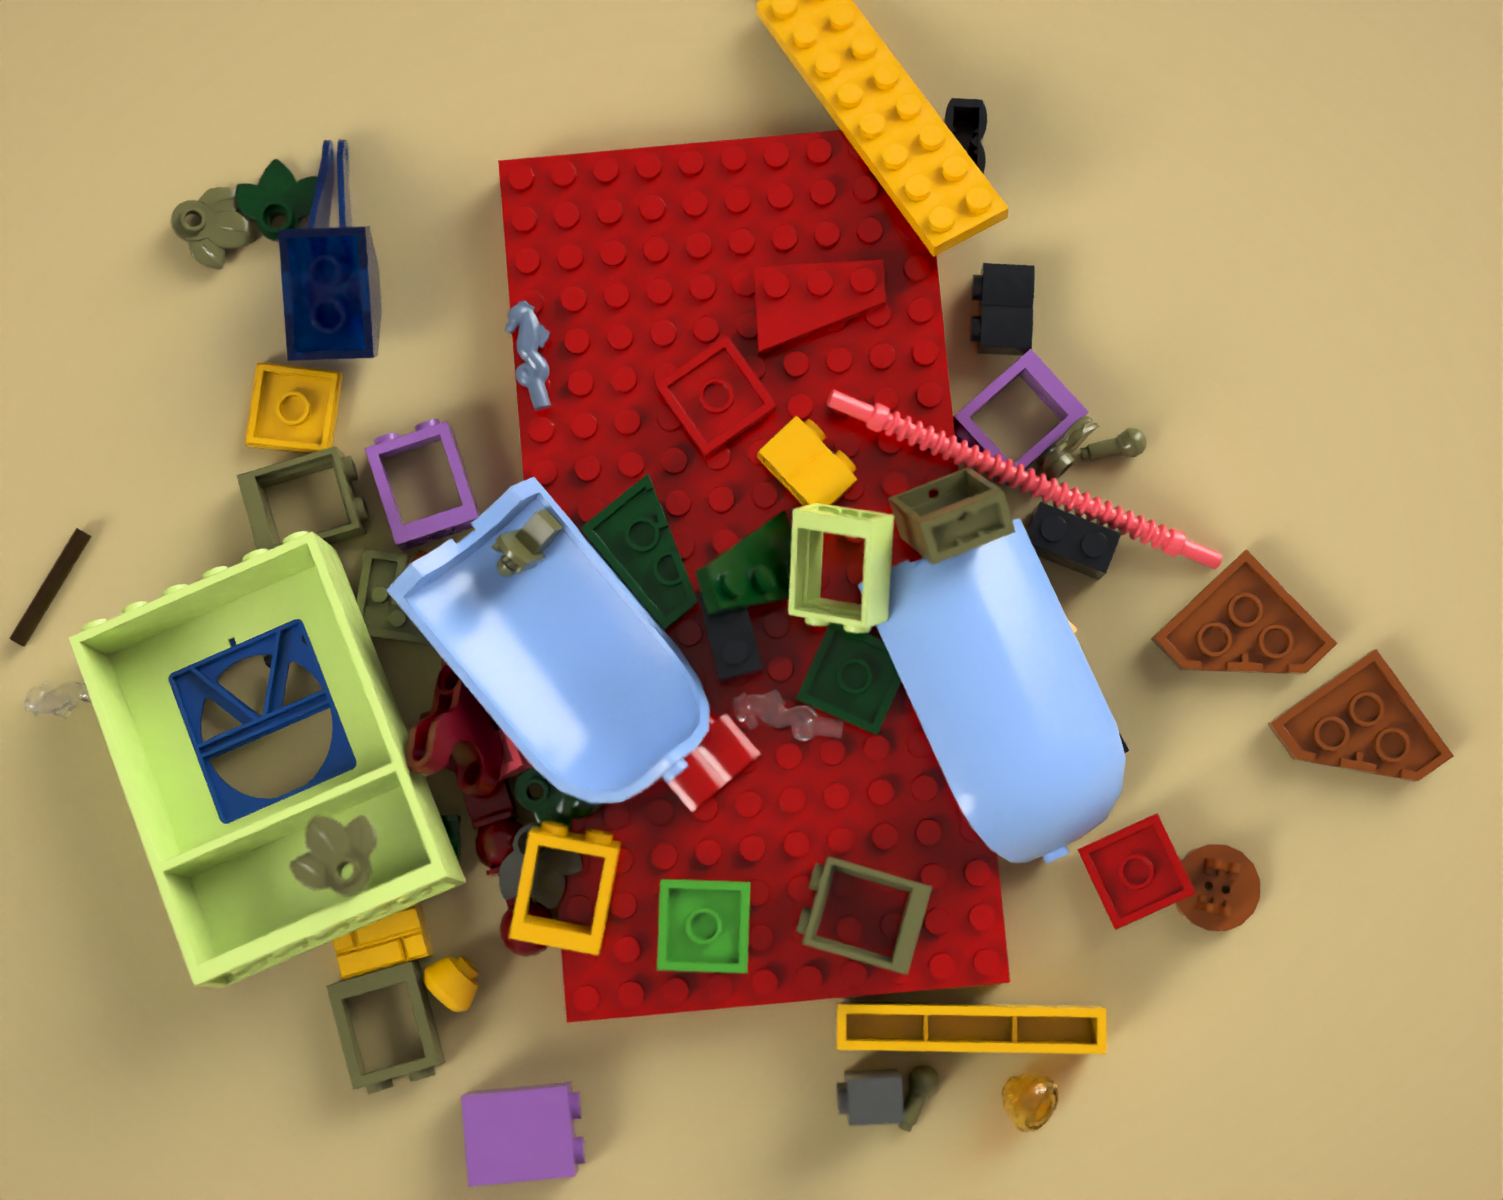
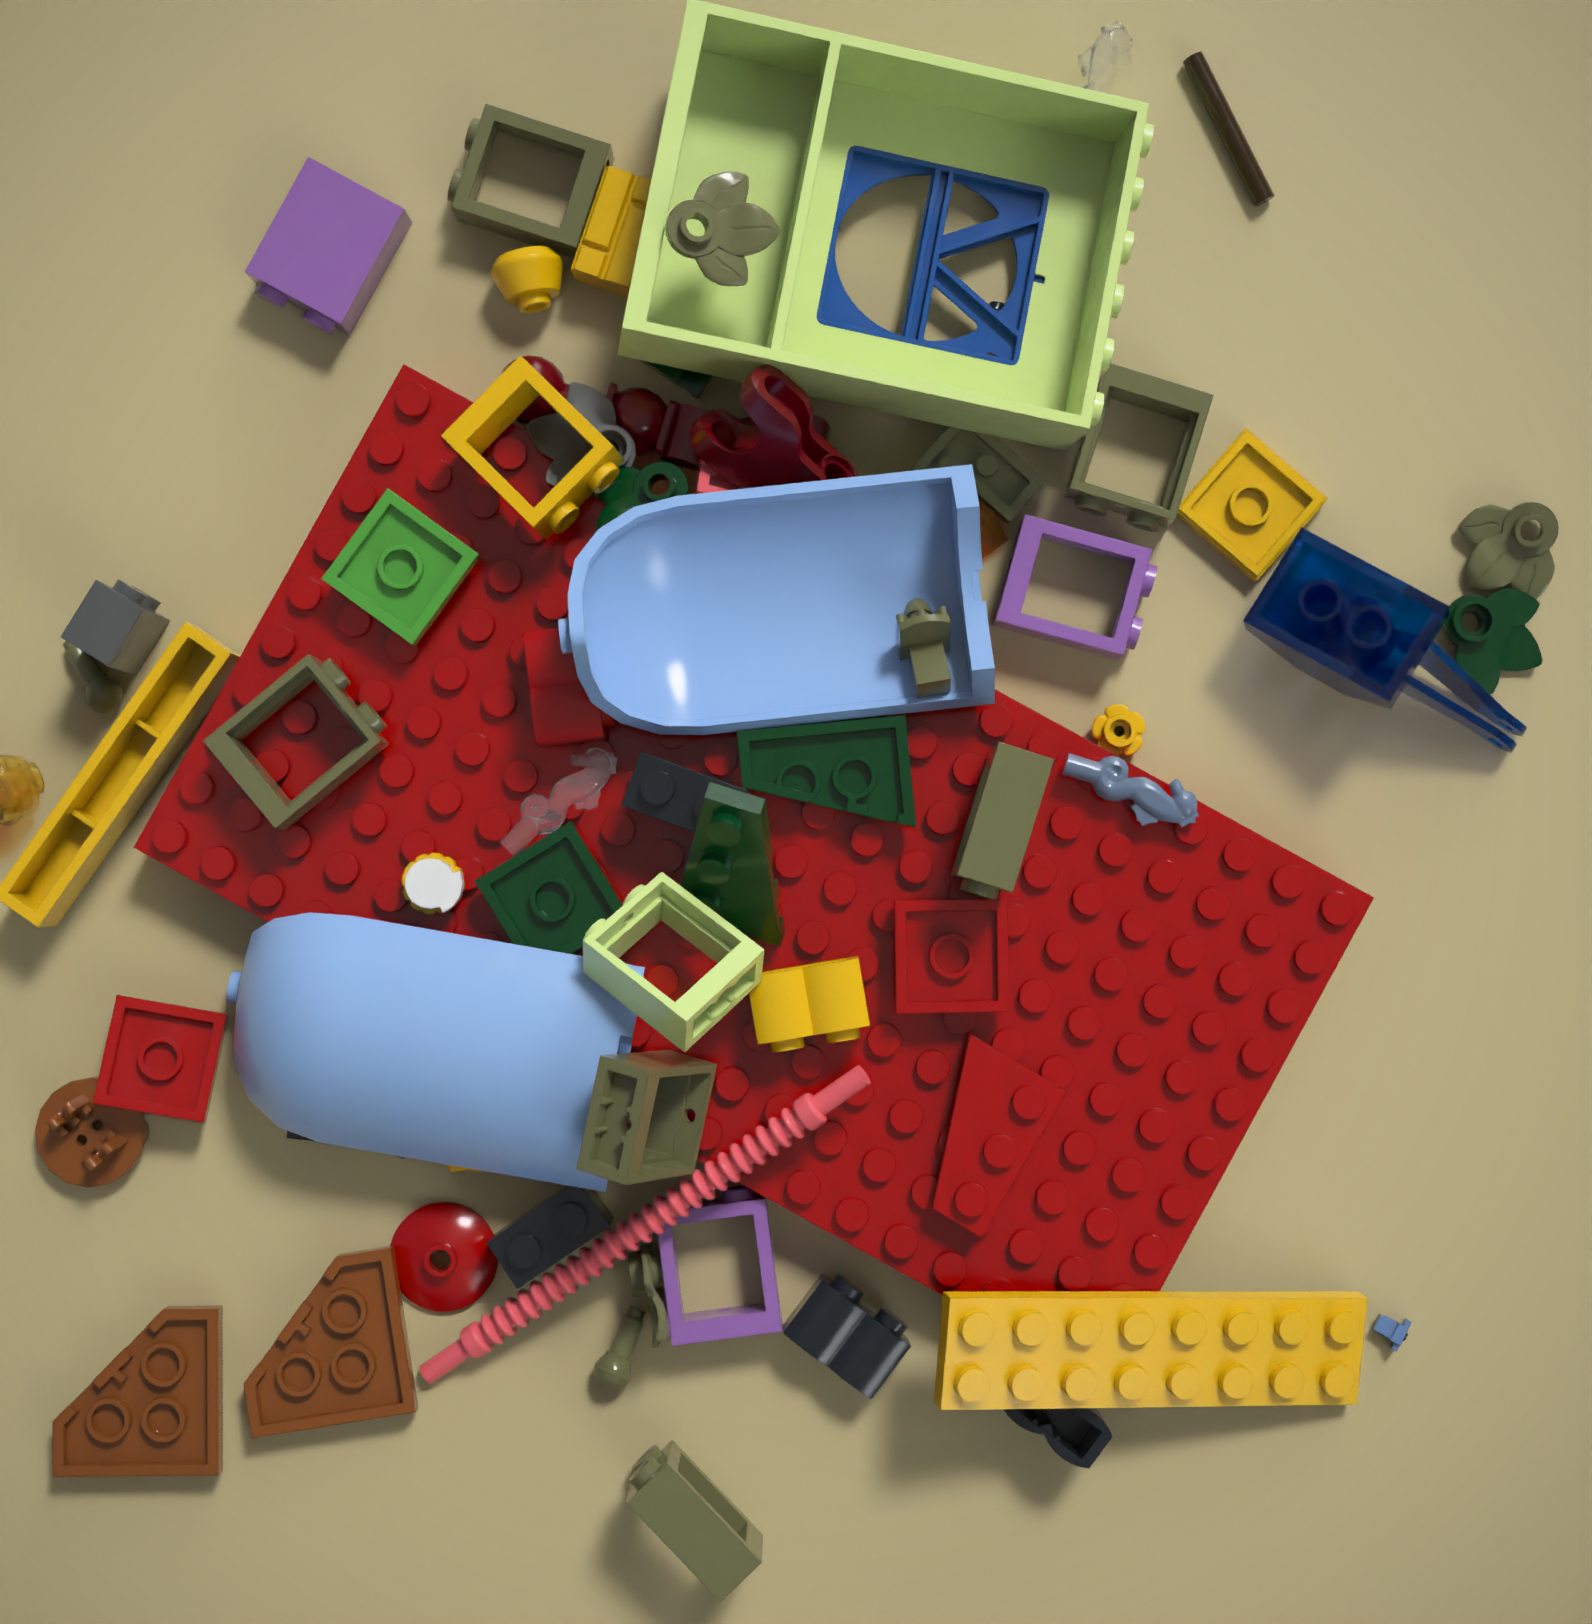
camera: 120 degrees right, 5 degrees up
(498, 406) = (1133, 727): none -> yellow plate
(607, 418) = (1001, 820): none -> olive window
(897, 762) = (433, 883): none -> white piece
(1114, 607) = (460, 1234): none -> red dish
(1187, 324) = (694, 1519): none -> olive window

